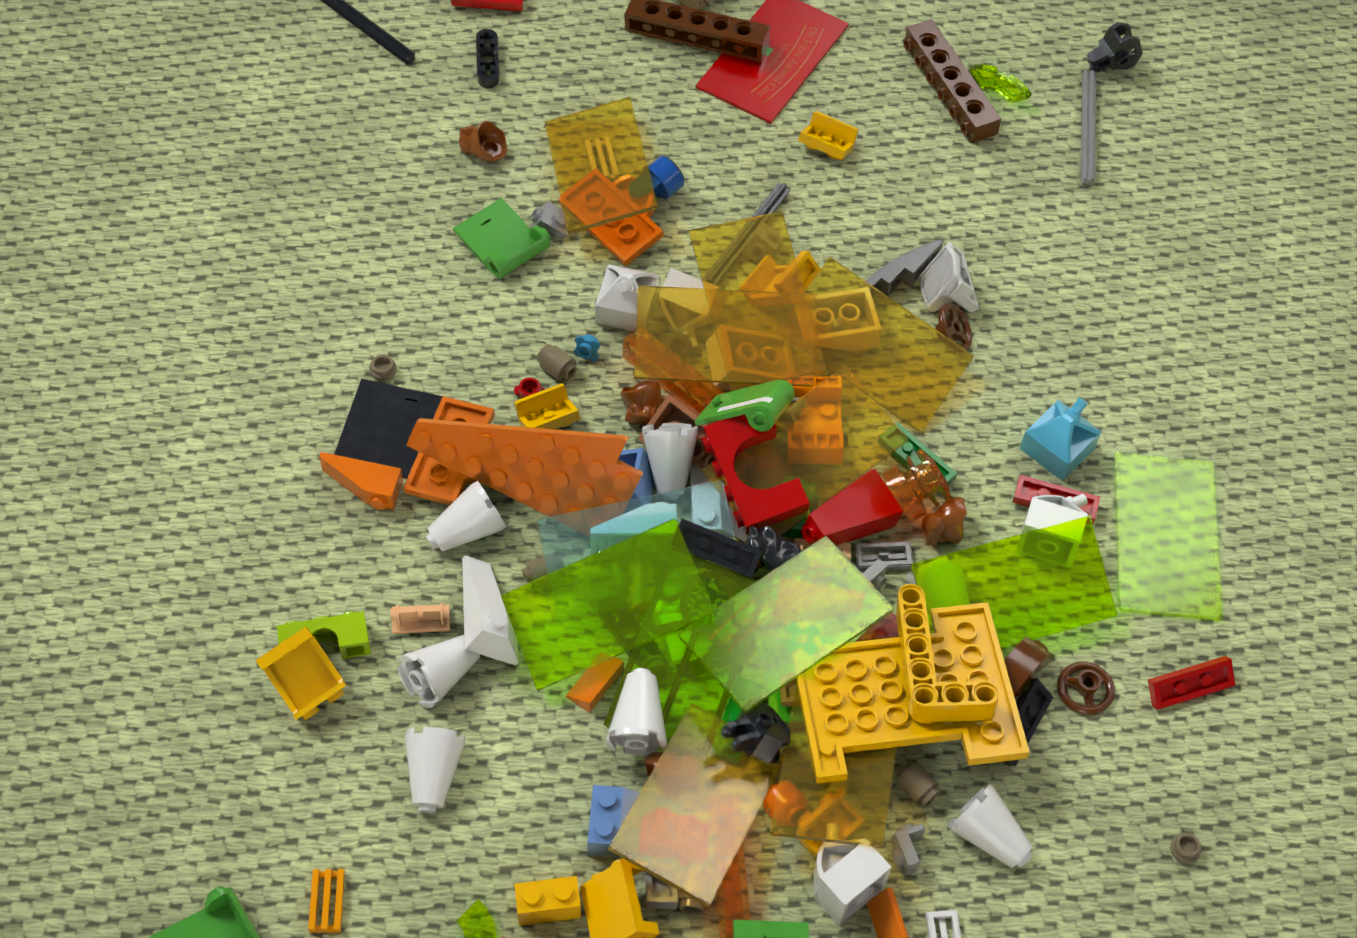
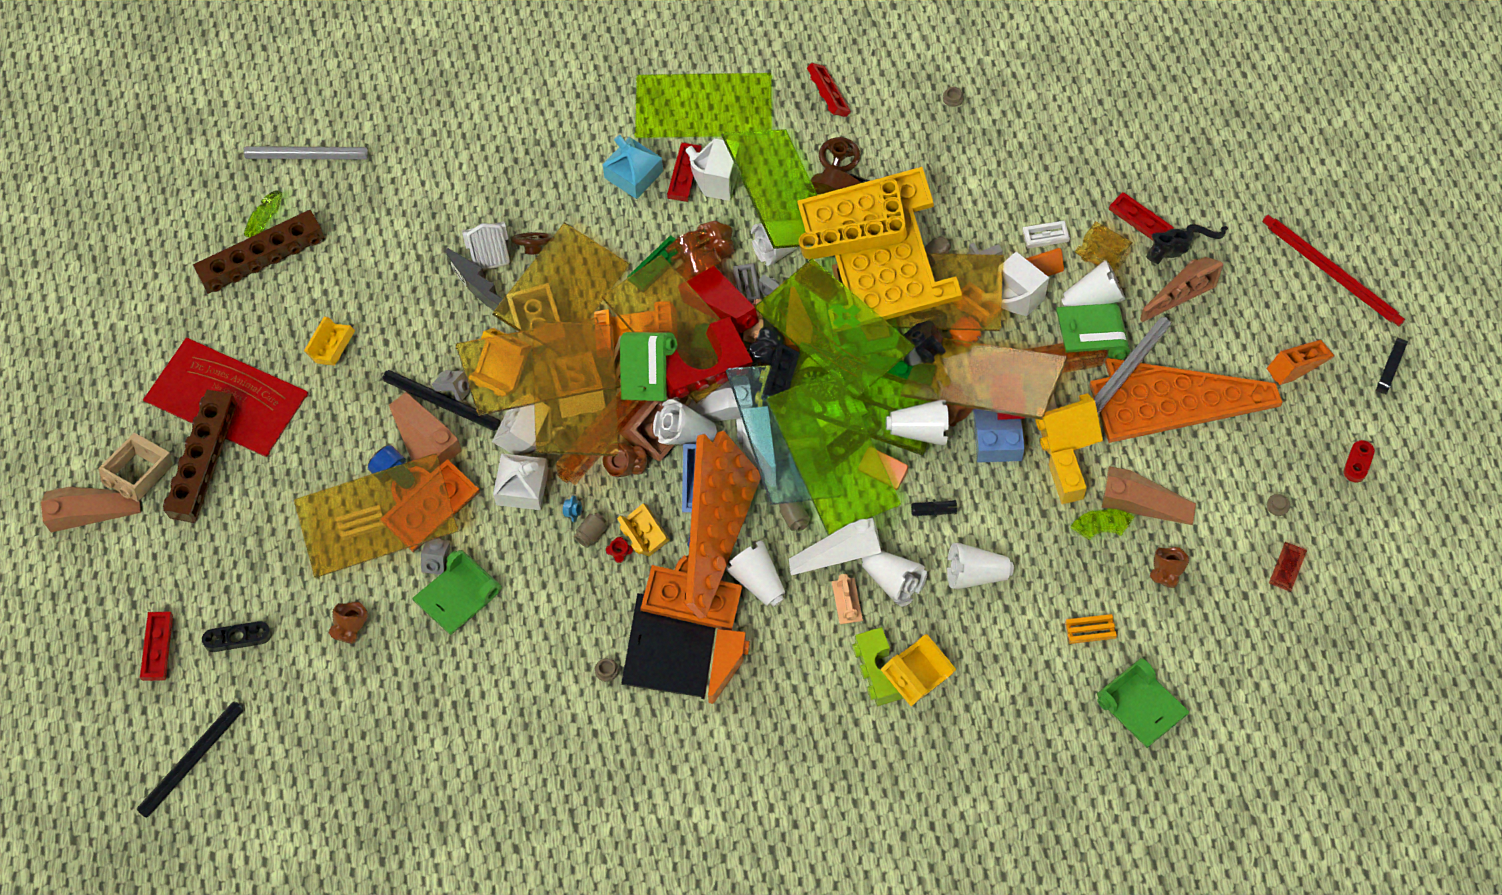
camera: 90 degrees left, 5 degrees up
(529, 732) = (933, 508): none -> black axle
(679, 220) = (422, 431): none -> nougat wedge
(992, 828) = (960, 207): white cone -> none
(1115, 50) = (226, 129): black hinge -> none

